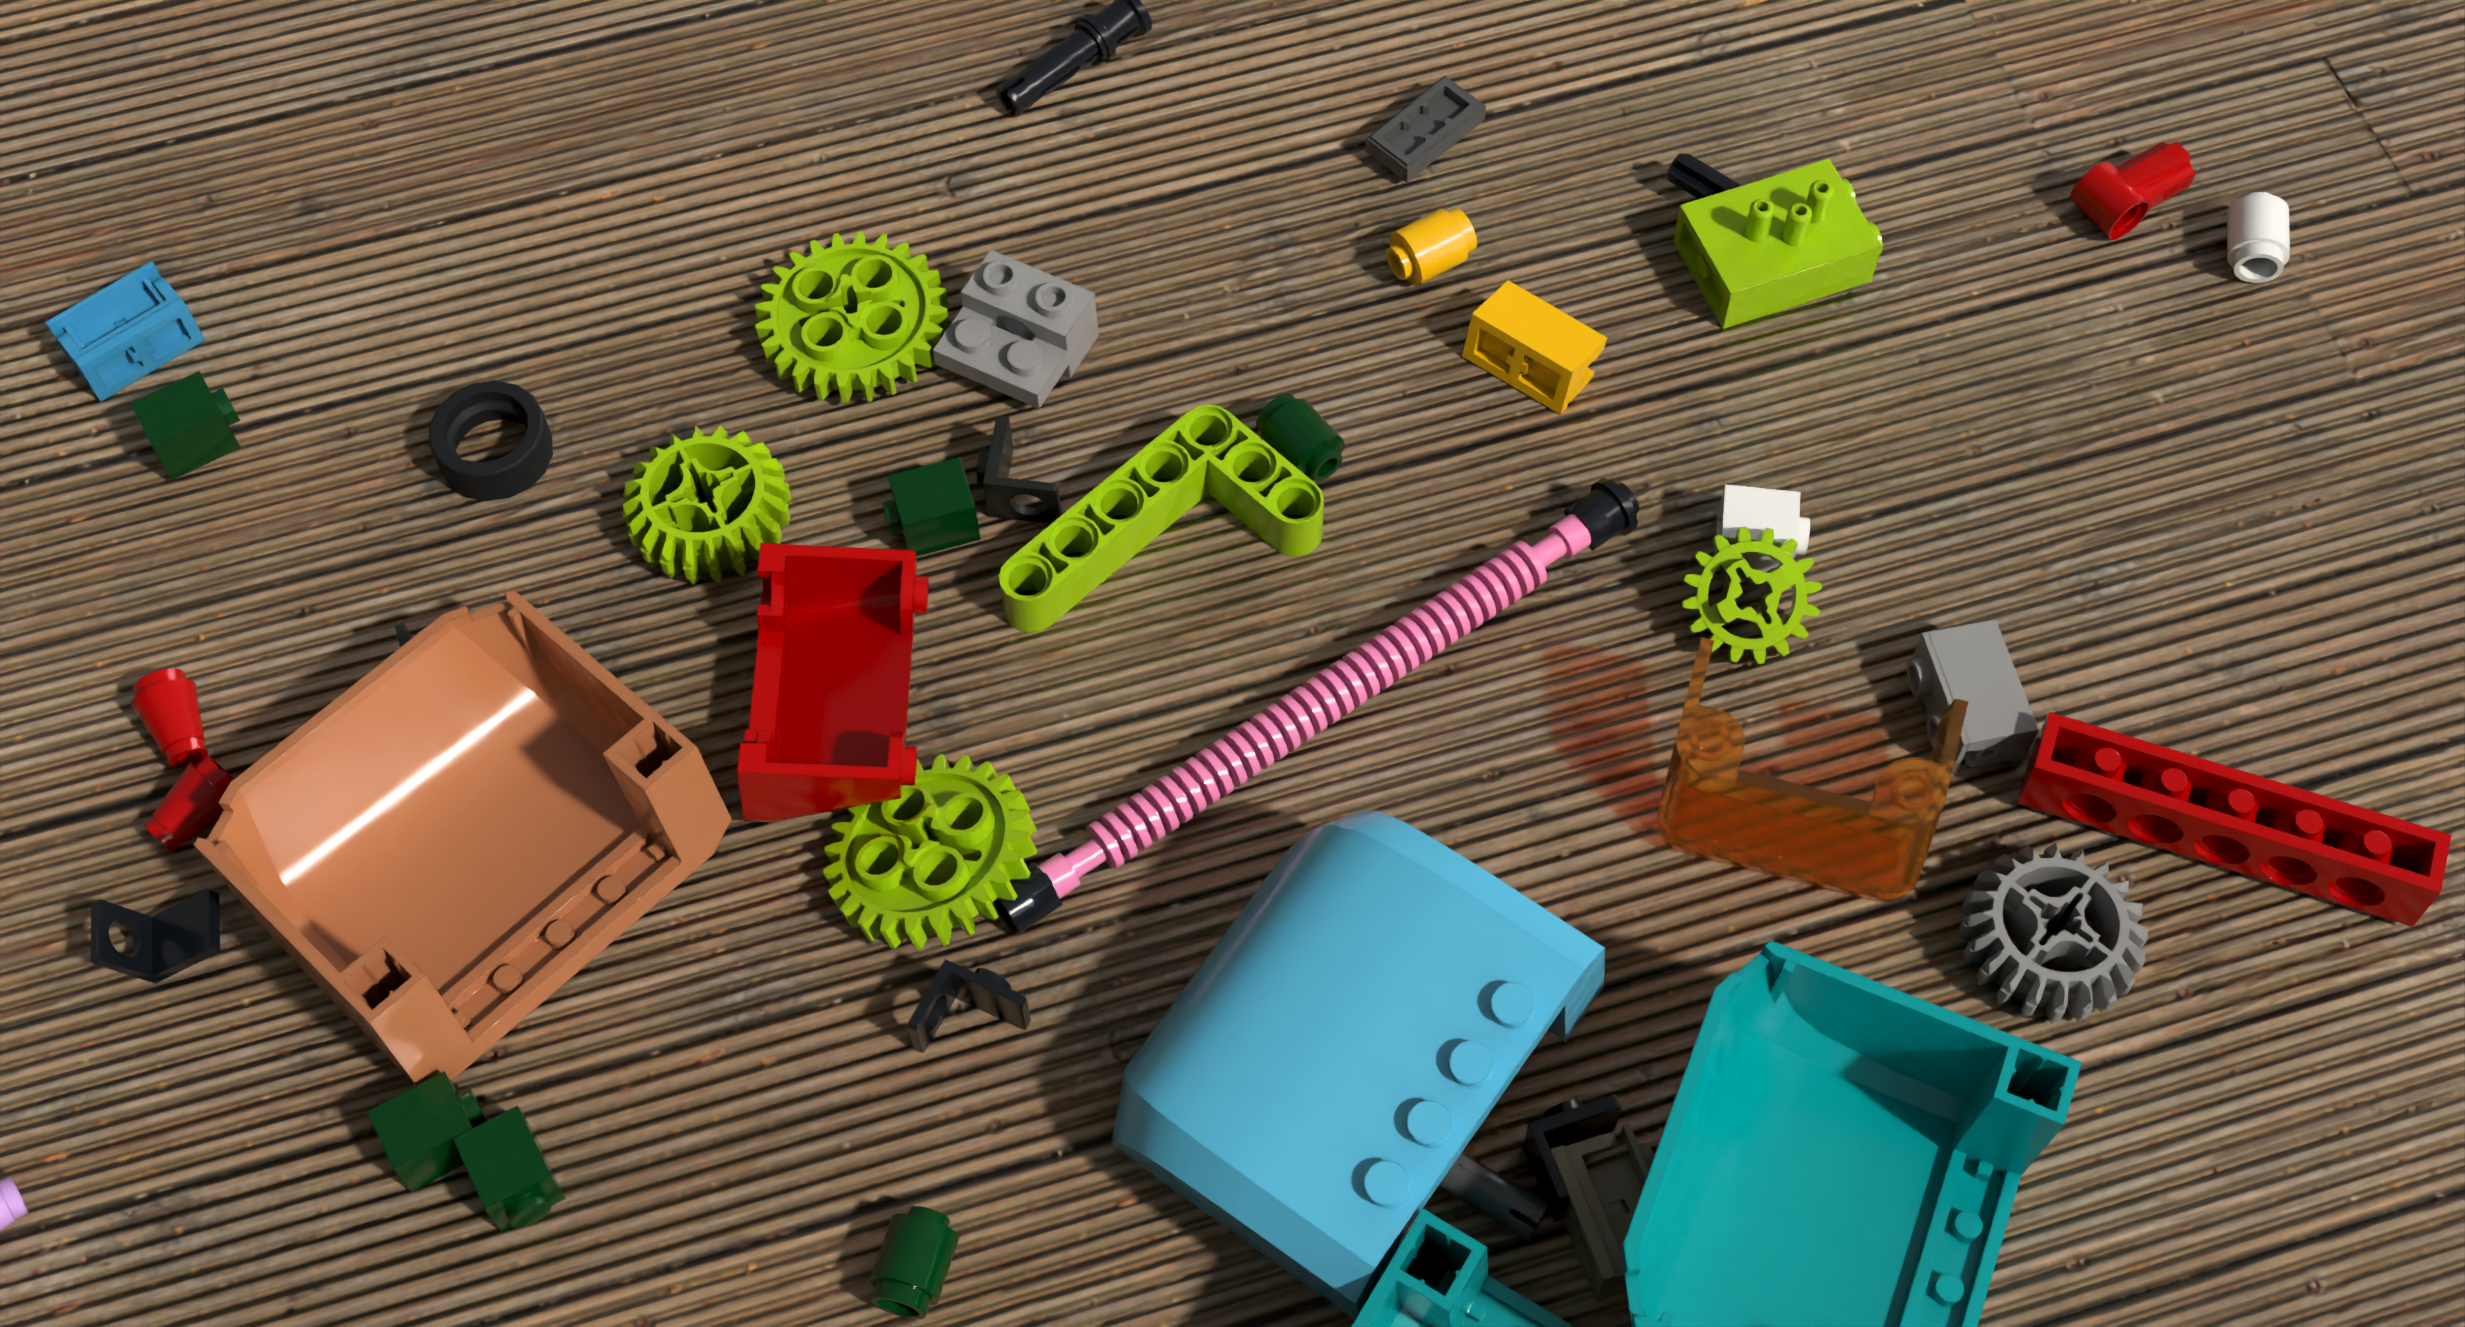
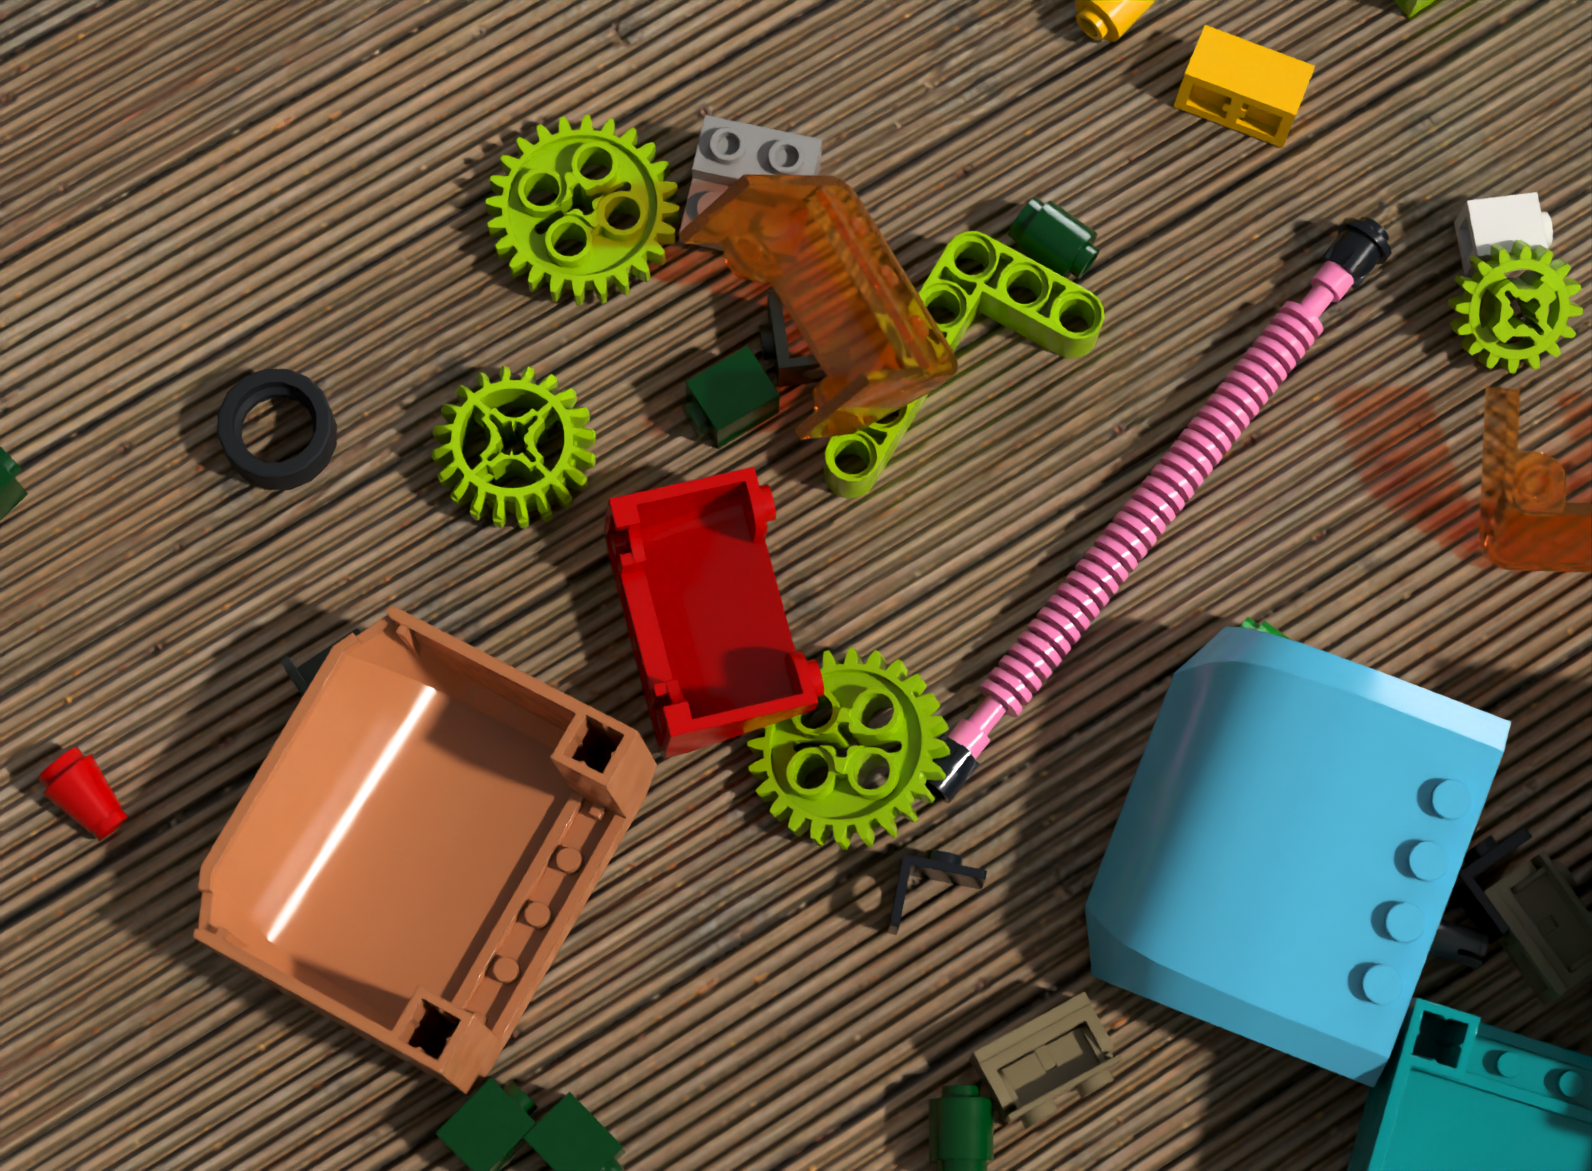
camera: 20 degrees left, 15 degrees up
(161, 942) = (168, 1012): black bracket -> none
(190, 804) = (141, 873): red cone -> none
(1028, 1211) = (1046, 1060): none -> dark tan hinge
(1063, 411) = (838, 287): none -> clear orange windscreen

